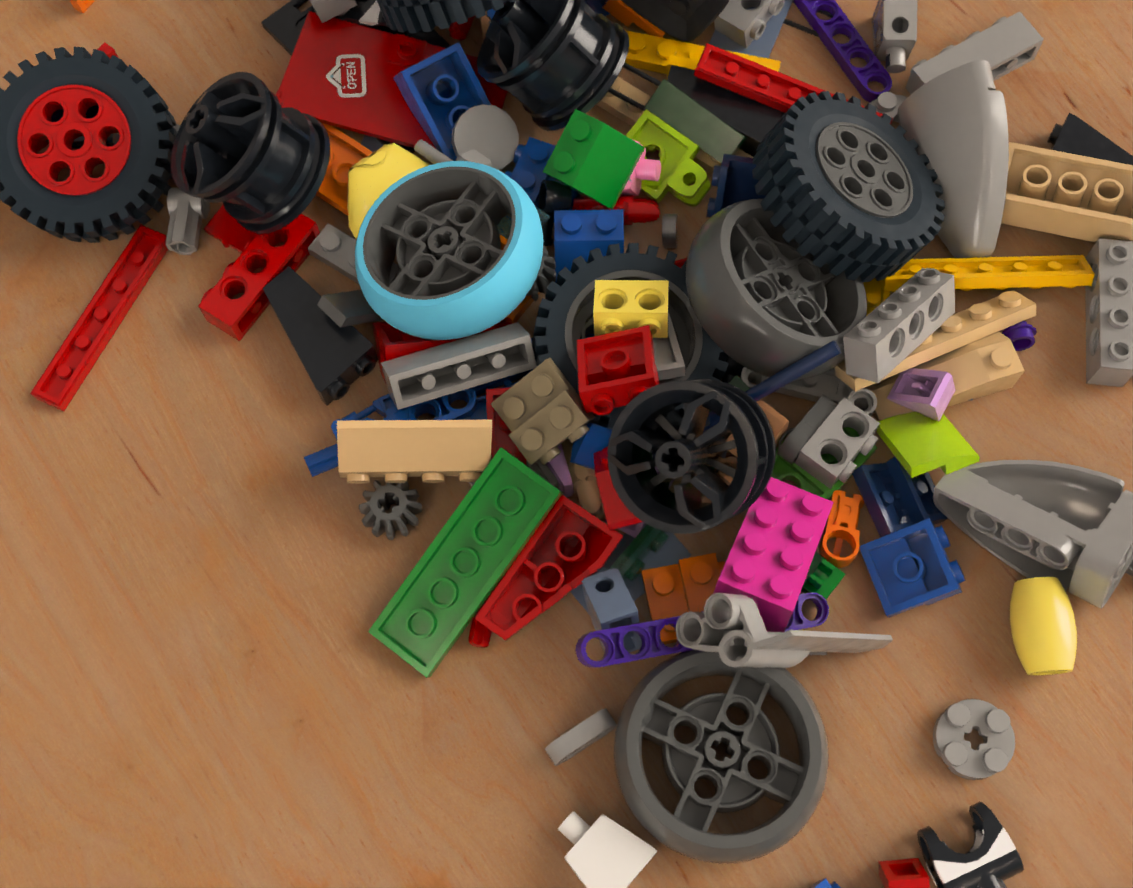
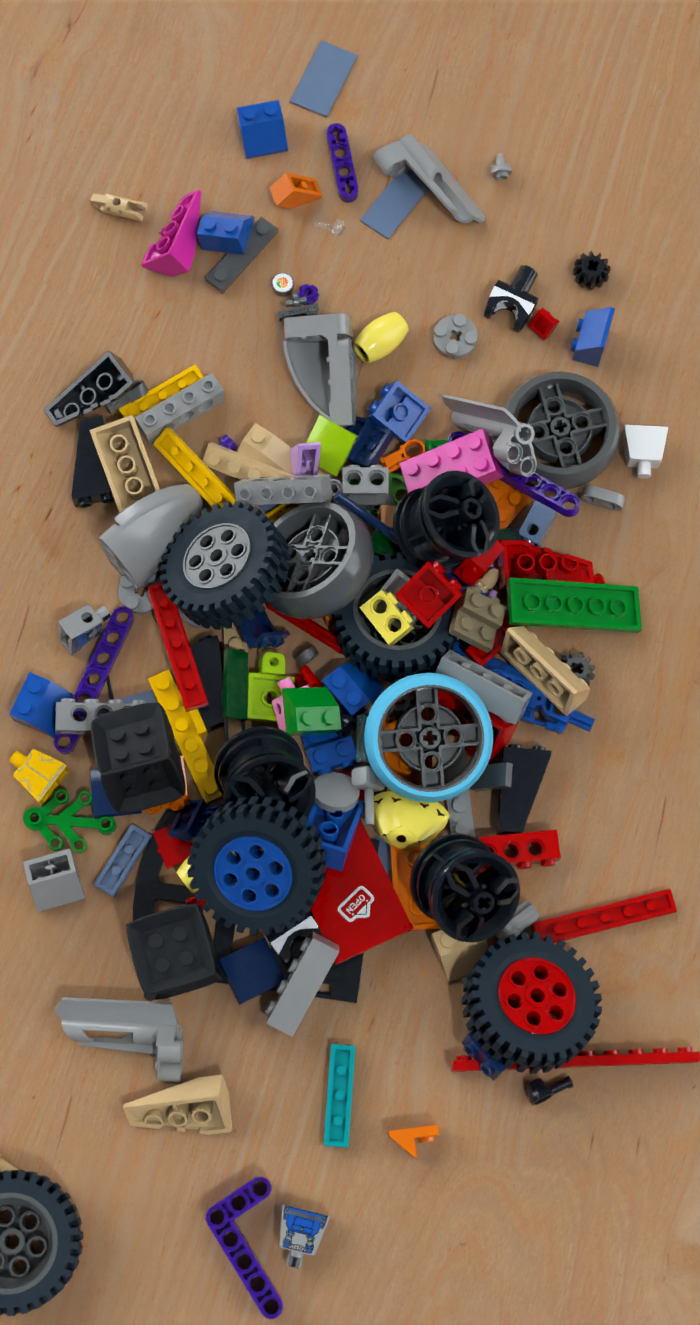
camera: 135 degrees left, 5 degrees up
(1004, 45) = (69, 574): light grey brick -> none

